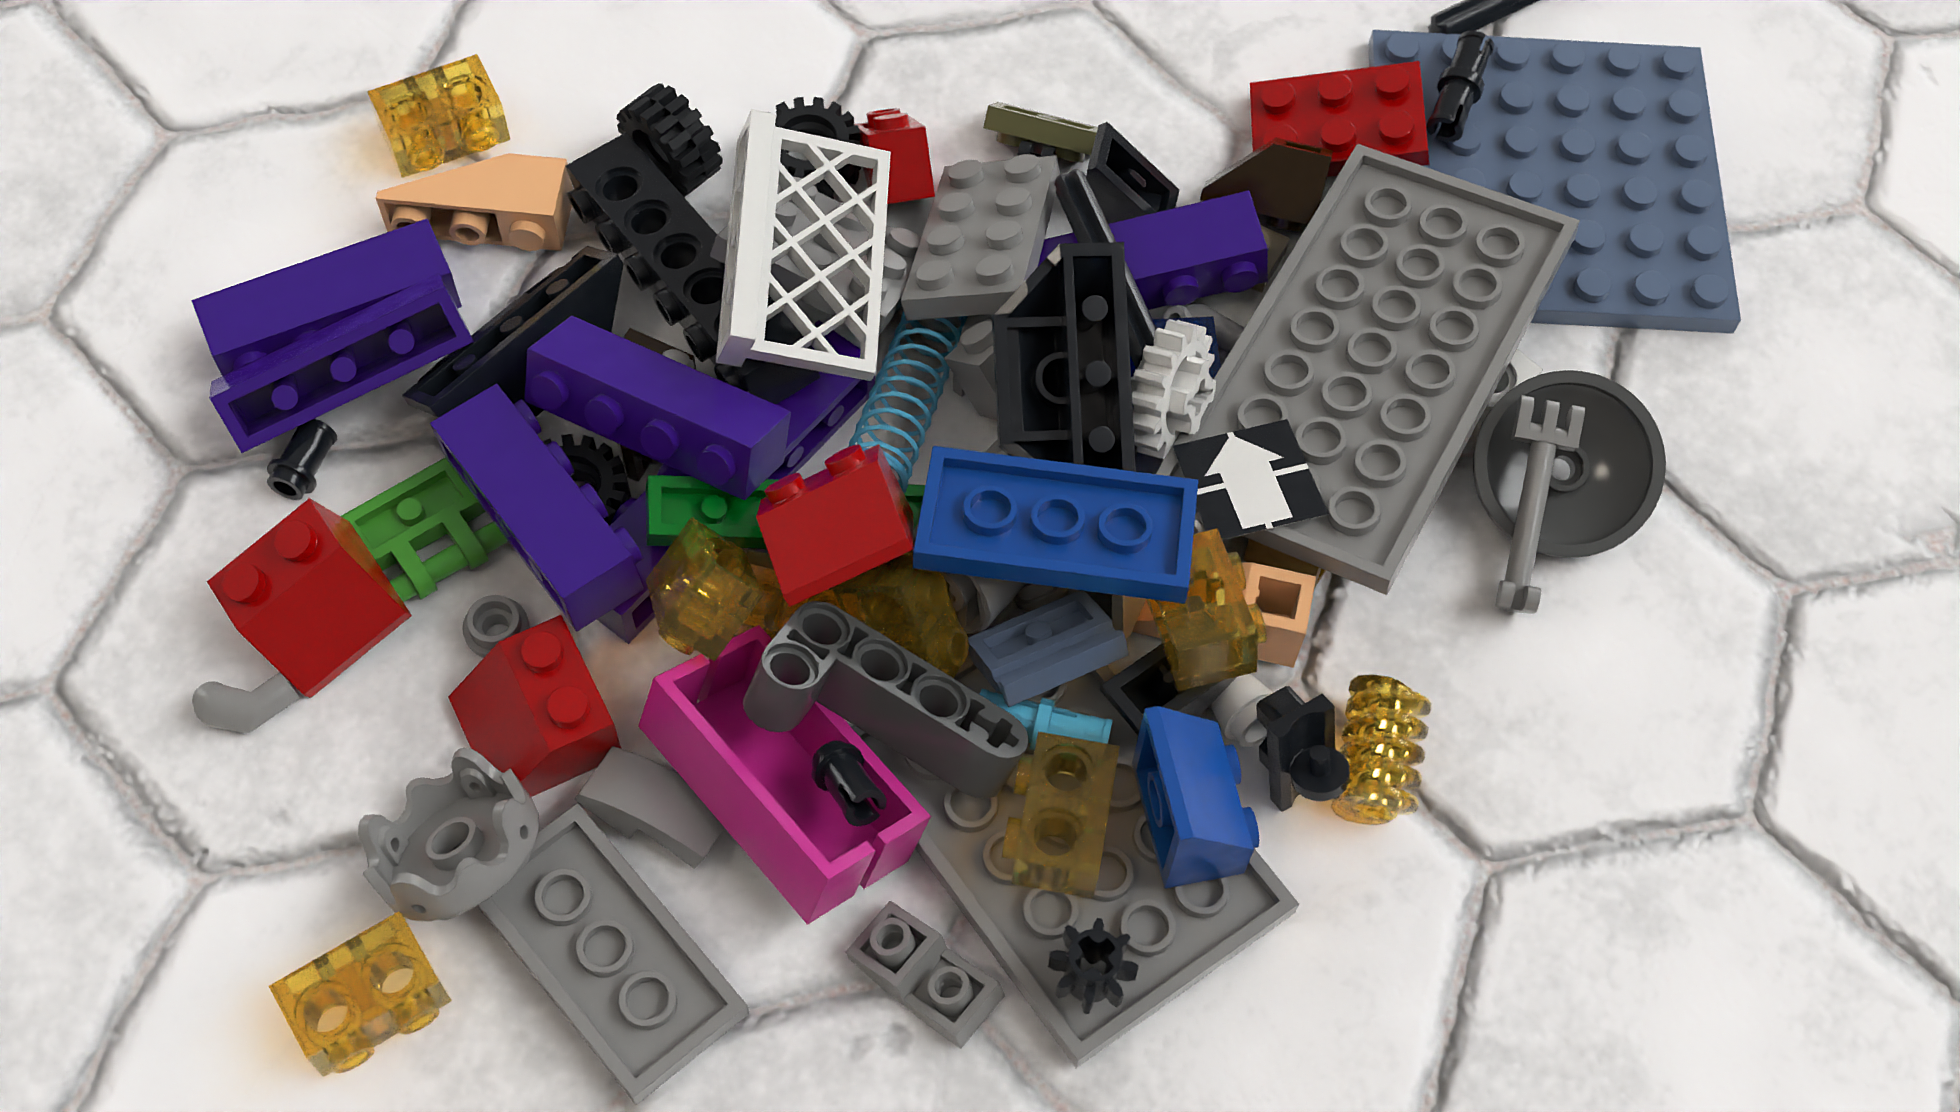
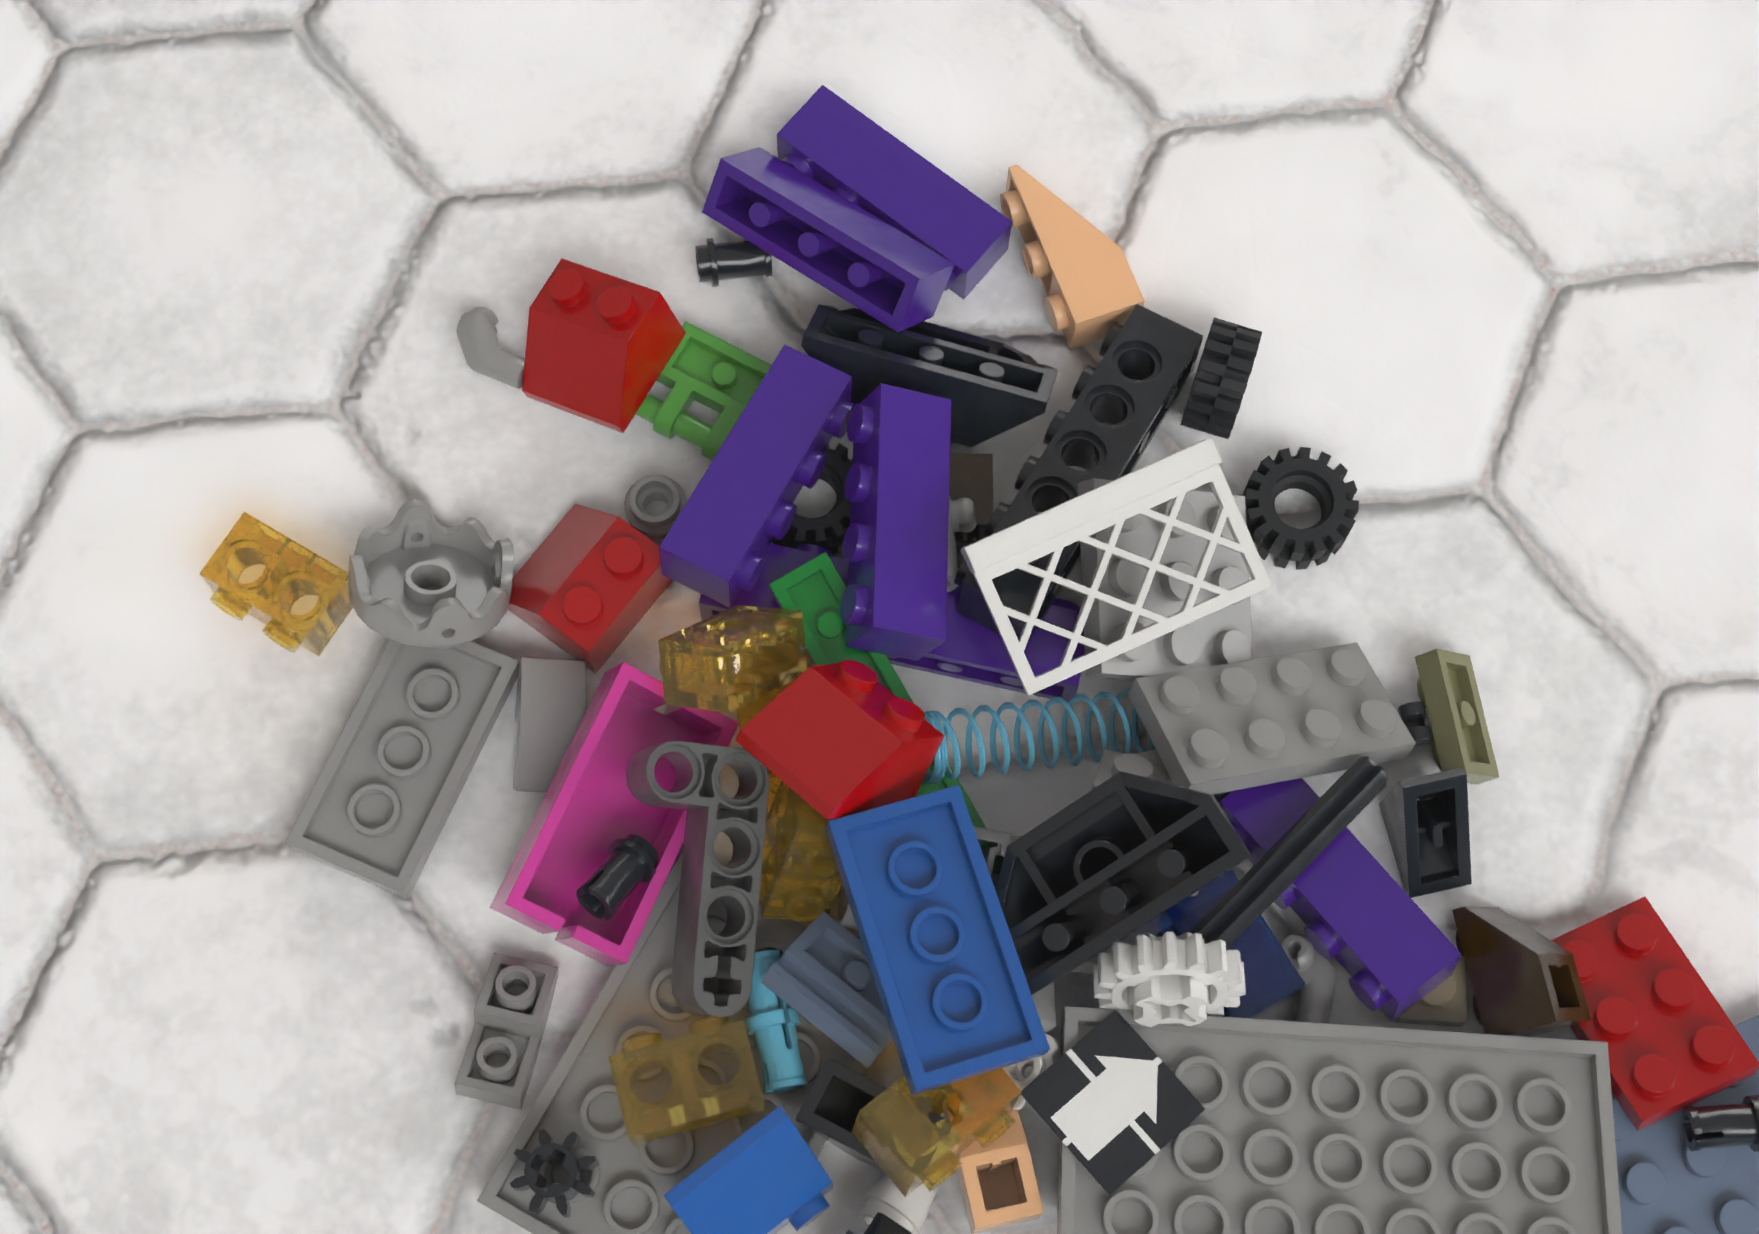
camera: 65 degrees right, 10 degrees up
(439, 115) = (1153, 157): clear yellow brick -> none
(909, 159) = (1333, 589): red slope -> none

